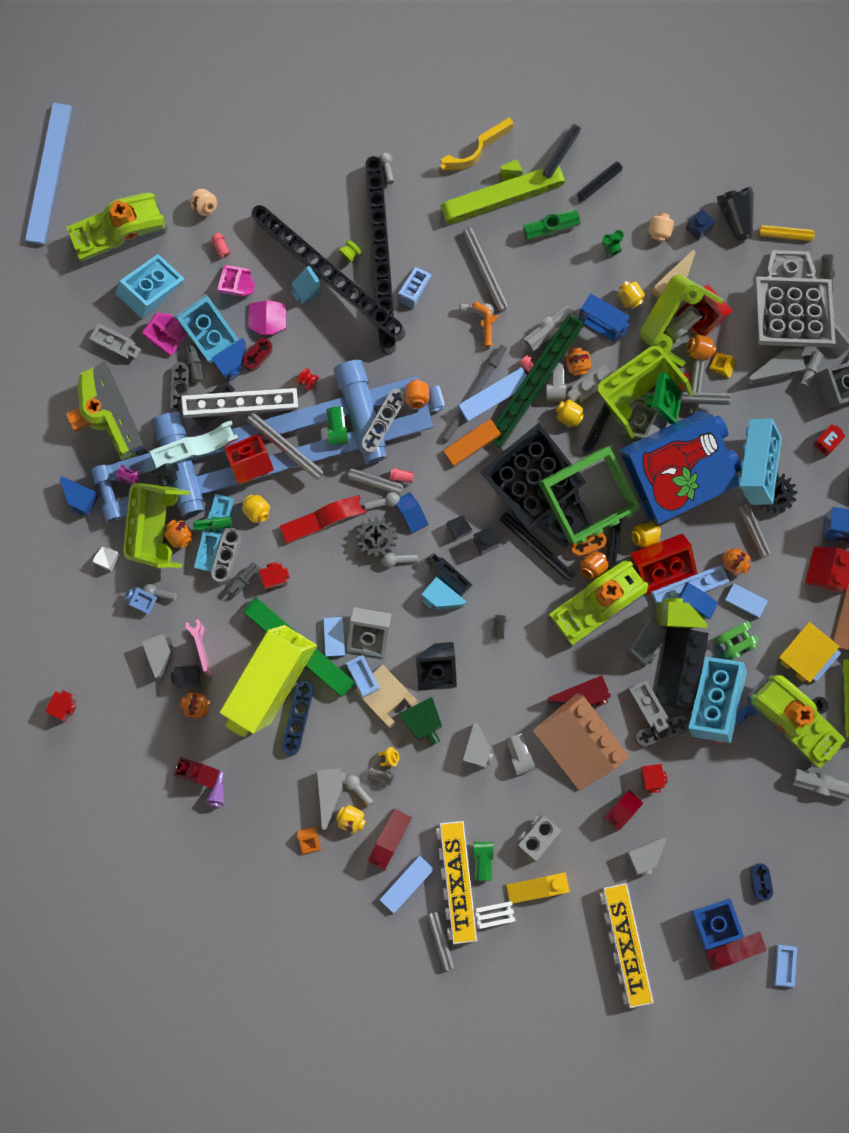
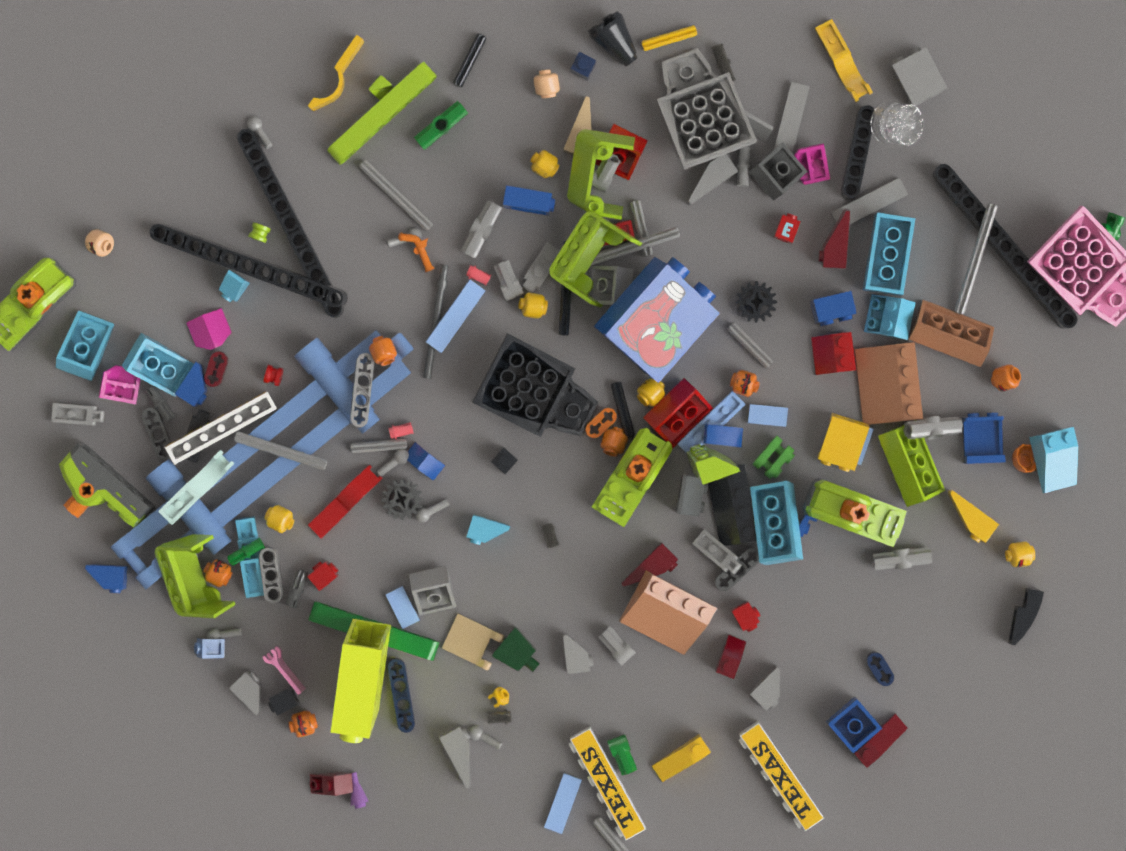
camera: 20 degrees left, 10 degrees up
(61, 705) = (182, 774): red brick -> none
(106, 558) = (161, 622): white slope -> none
(127, 475) = (147, 540): magenta bush -> none
(165, 471) = (181, 524): black tile -> none
(220, 245) = (130, 274): coral pin -> none
(236, 281) = (165, 307): dark pink slope -> none
(249, 458) = (252, 477): red slope -> none
(308, 840) = (458, 800): orange slope -> none
(337, 431) = (322, 415): green piece -> none
(350, 819) = (488, 768): yellow head -> none
(362, 676) = (444, 633): light blue tile -> none
(389, 839) = (530, 771): dark red slope -> none
(409, 298) = (331, 257): light blue slope -> none
(437, 667) = (508, 596): black slope -> none
(448, 574) = (483, 506): black hinge -> none
(459, 527) = (474, 457): black slope -> none
(472, 442) = (453, 371): orange tile -> none
(508, 912) = (664, 789): white tile -> none
(537, 378) = (488, 288): dark green tile -> none
(537, 547) = (555, 445): black axle -> none
(542, 841) = (668, 714): light grey brick -> none
(561, 151) = (420, 49): black axle -> none
(578, 361) = (521, 251): orange head -> none
(610, 520) = (559, 362): bright green window -> none
(612, 243) = (506, 120): green plate -> none
(666, 398) = (618, 259): green tile -> none
(701, 347) = (631, 189): orange head -> none
(723, 364) = (659, 195): yellow slope -> none
(760, 461) = (730, 282): medium azure brick -> none
(785, 966) = (929, 734): light blue tile -> none
(823, 702) = (876, 489): black bush -> none

